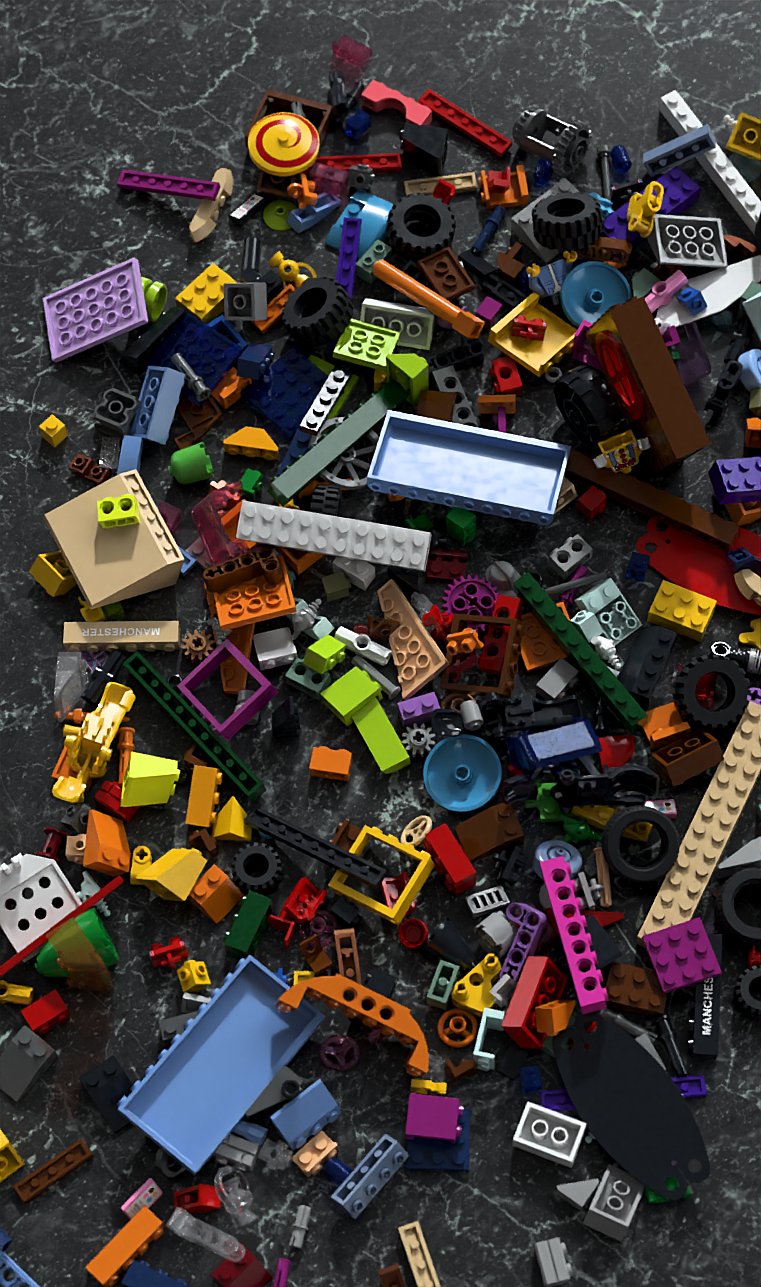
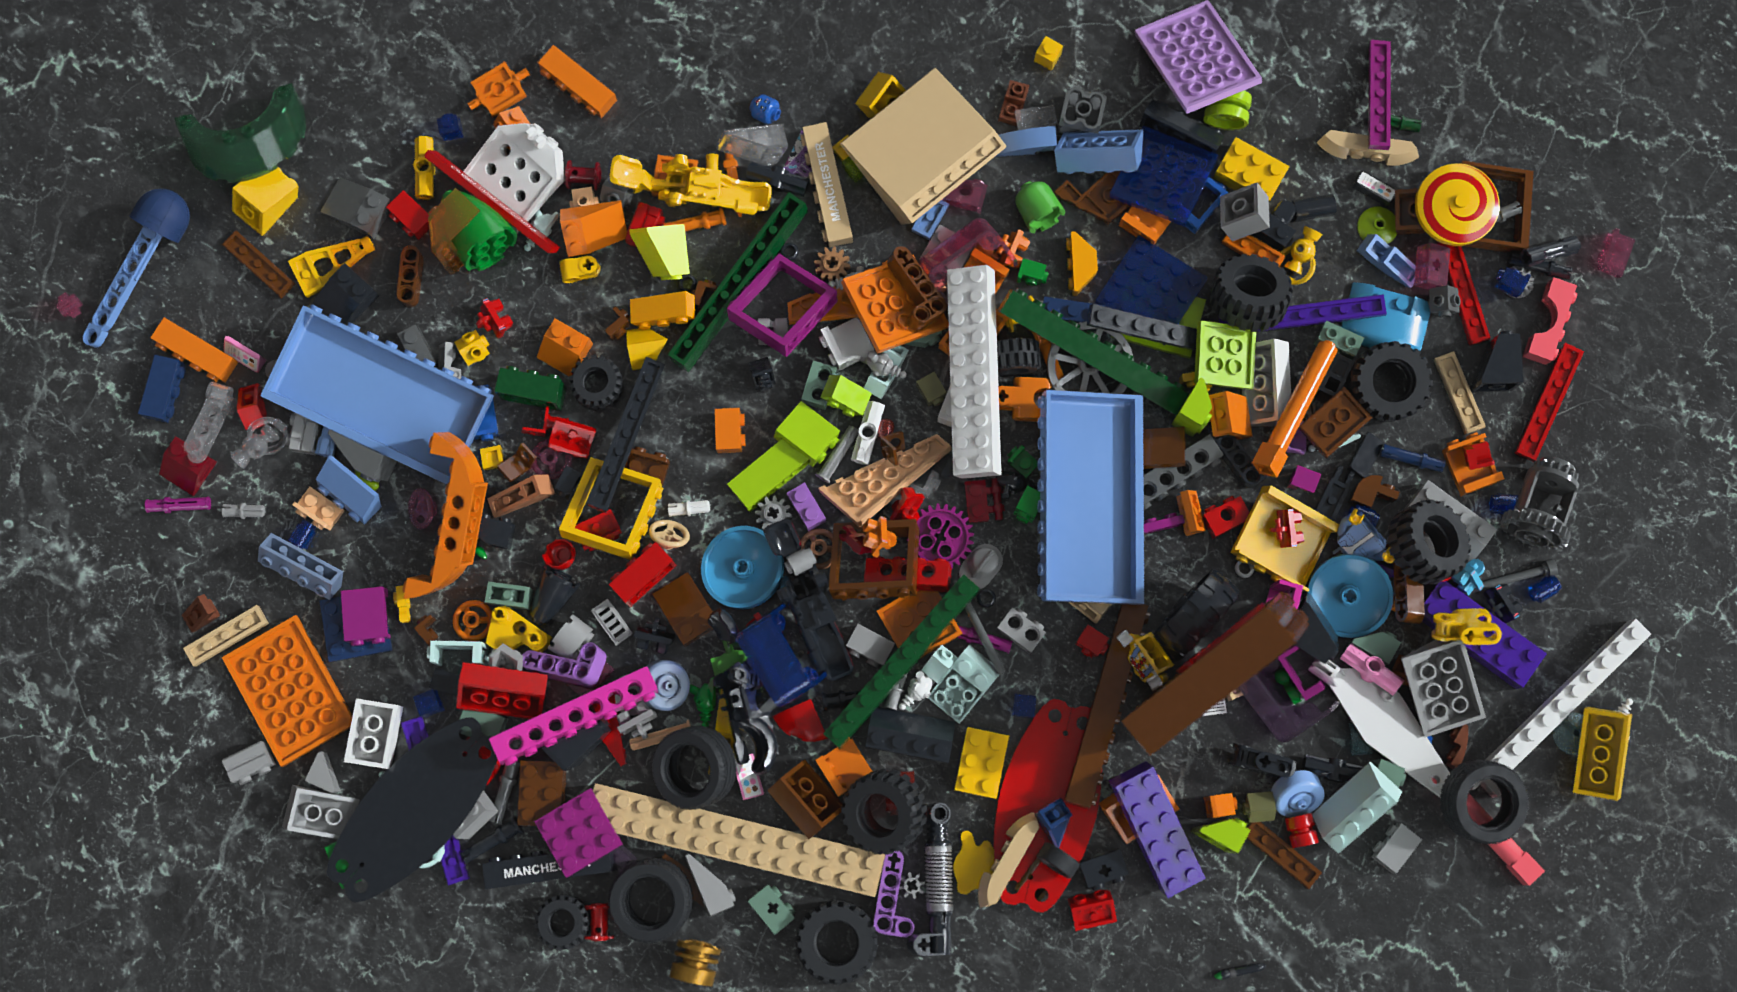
camera: 75 degrees right, 15 degrees up
(34, 674) = (765, 109): none -> blue head
(79, 1122) = (306, 272): none -> yellow plate
(112, 1031) = (410, 266): none -> reddish brown beam
(118, 516) = (945, 140): neon yellow brick -> none
(173, 874) = (571, 300): yellow slope -> none
(194, 382) = (1131, 182): dark grey pin -> none
(199, 171) = (1404, 123): none -> dark green axle
(255, 361) = (1175, 240): dark blue brick -> none
(276, 1154) = (305, 470): clear brick -> none
(290, 1082) = (365, 470): black axle -> none
(303, 192) = (1403, 239): orange hips -> none
(362, 511) = (1020, 397): none -> orange piece
(395, 813) = (688, 508): none -> white axle
(424, 349) = (1230, 415): none -> orange panel
(444, 191) = (1444, 396): red panel -> none
(489, 1212) = (289, 690): none -> orange plate
(554, 1016) = (488, 714): orange slope -> none
(679, 150) = (1565, 653): sand blue brick -> none
(693, 300) = (1369, 704): blue bracket -> none

